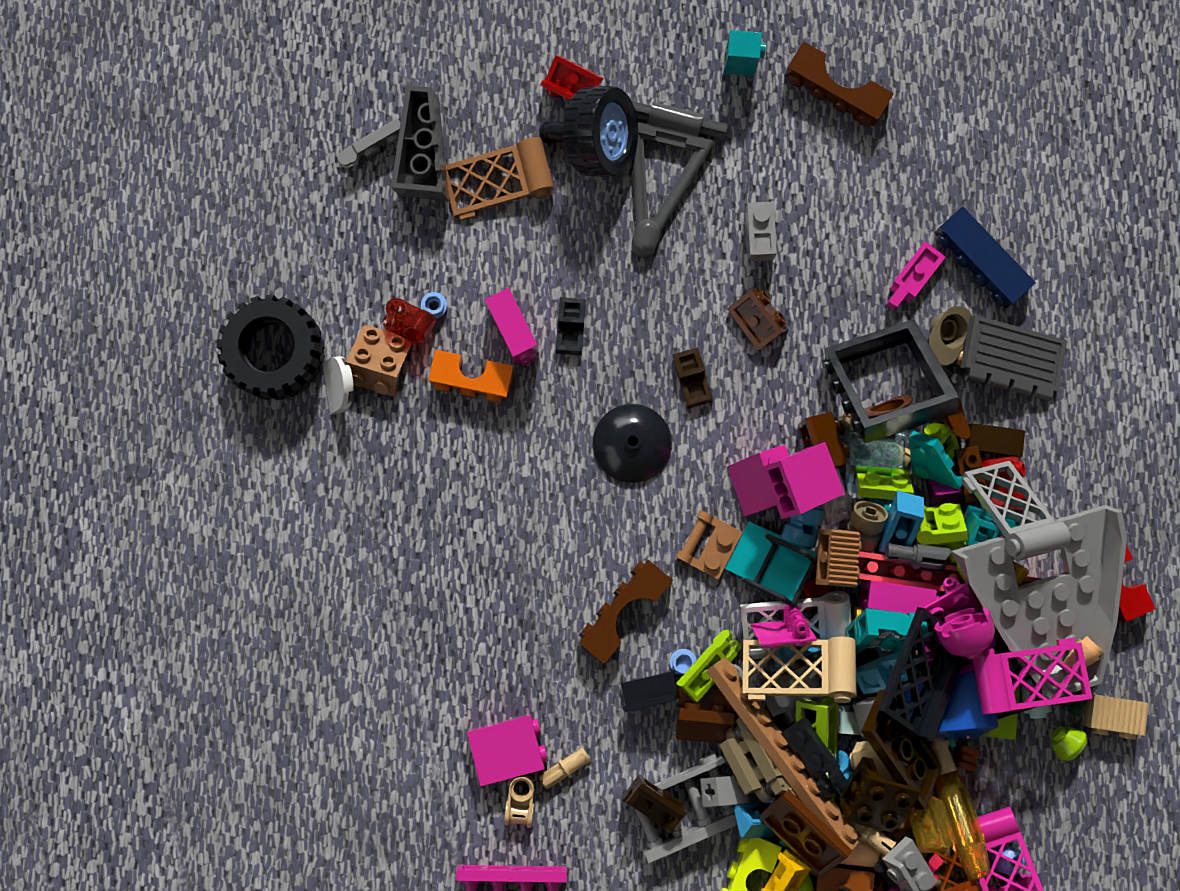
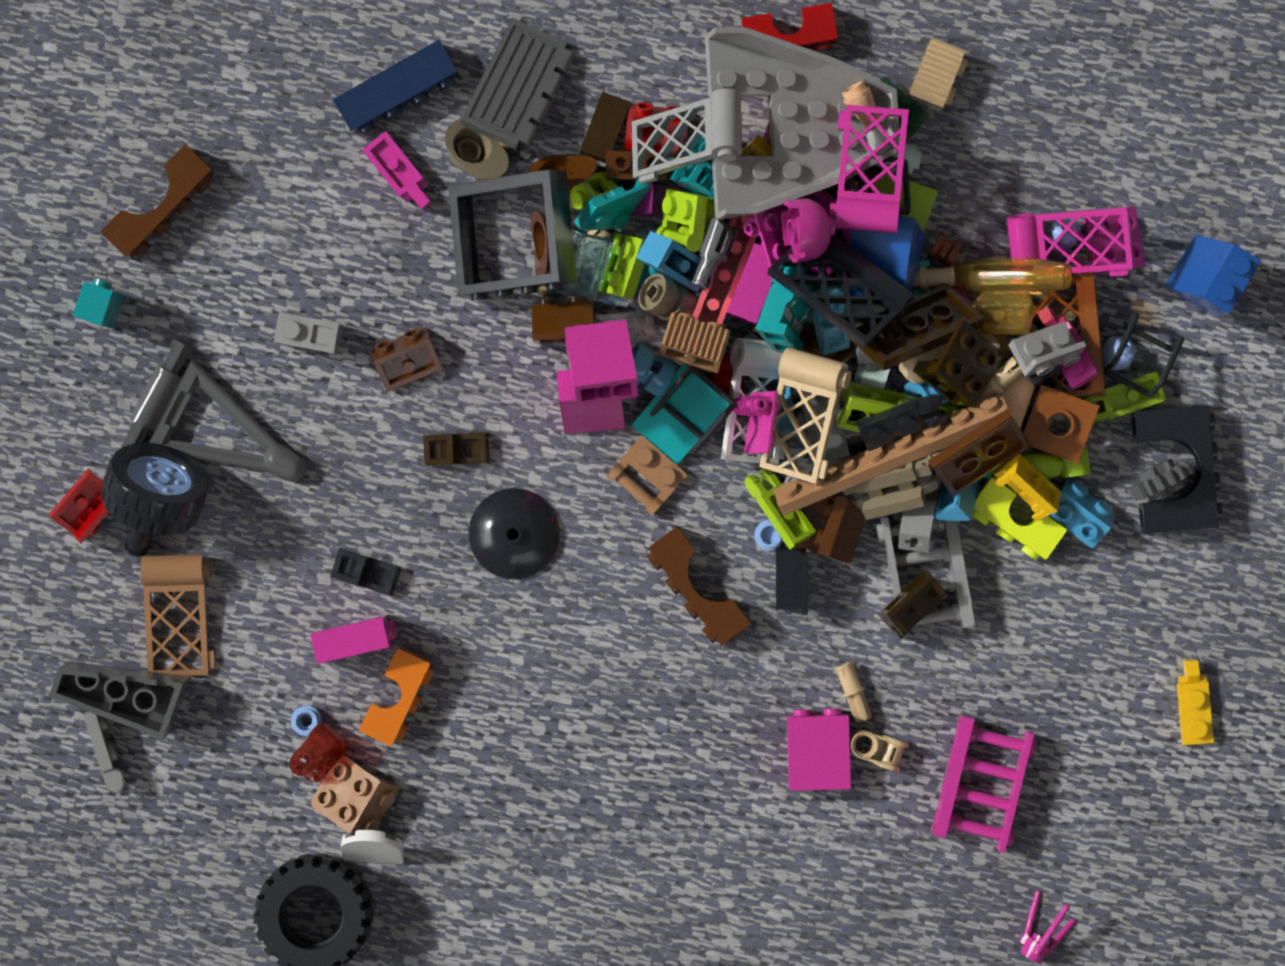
camera: 80 degrees left, 5 degrees up
(1068, 742) = (954, 135): lime cone -> none

